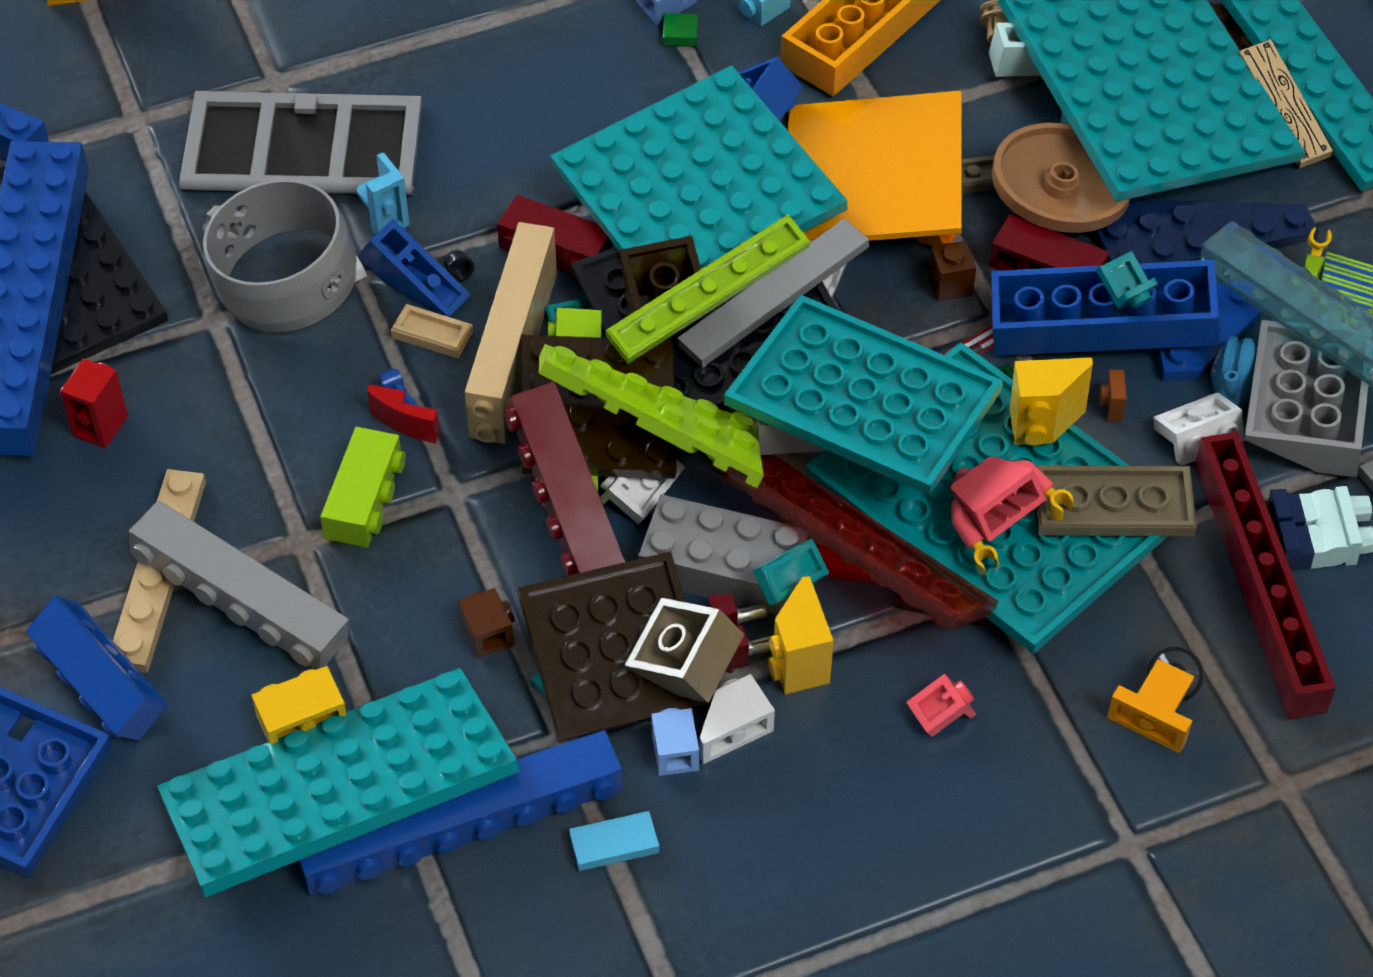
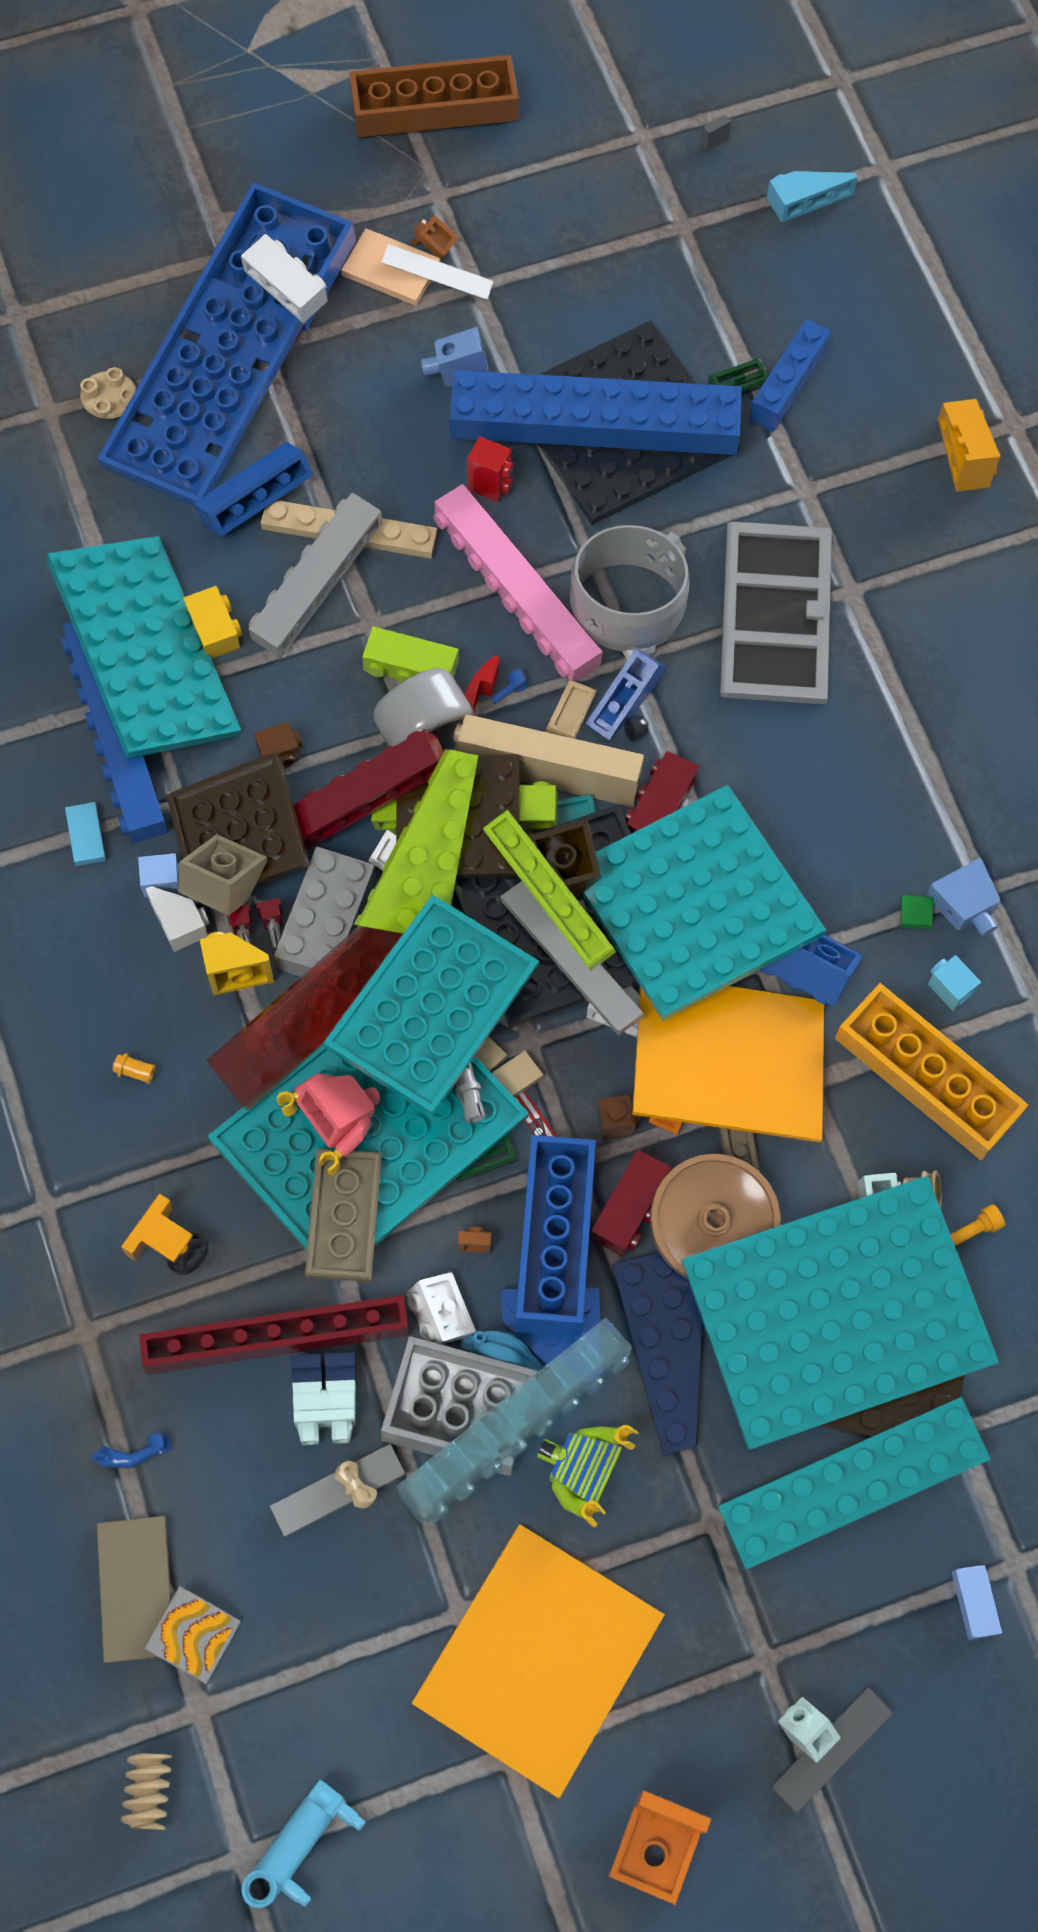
camera: 90 degrees right, 15 degrees up
(252, 383) = (517, 584): none -> bright pink brick
(385, 196) = (697, 666): medium azure panel -> none
(455, 449) = (422, 702): none -> light grey wheel
(785, 571) = (284, 951): teal tile -> none
(940, 763) = (133, 1068): none -> light orange pin
(941, 704) = (177, 1073): coral bracket -> none
(1048, 398) = (431, 1158): yellow slope -> none
(1126, 281) = (554, 1240): teal bracket -> none
(1274, 76) = (817, 1443): tan tile -> none

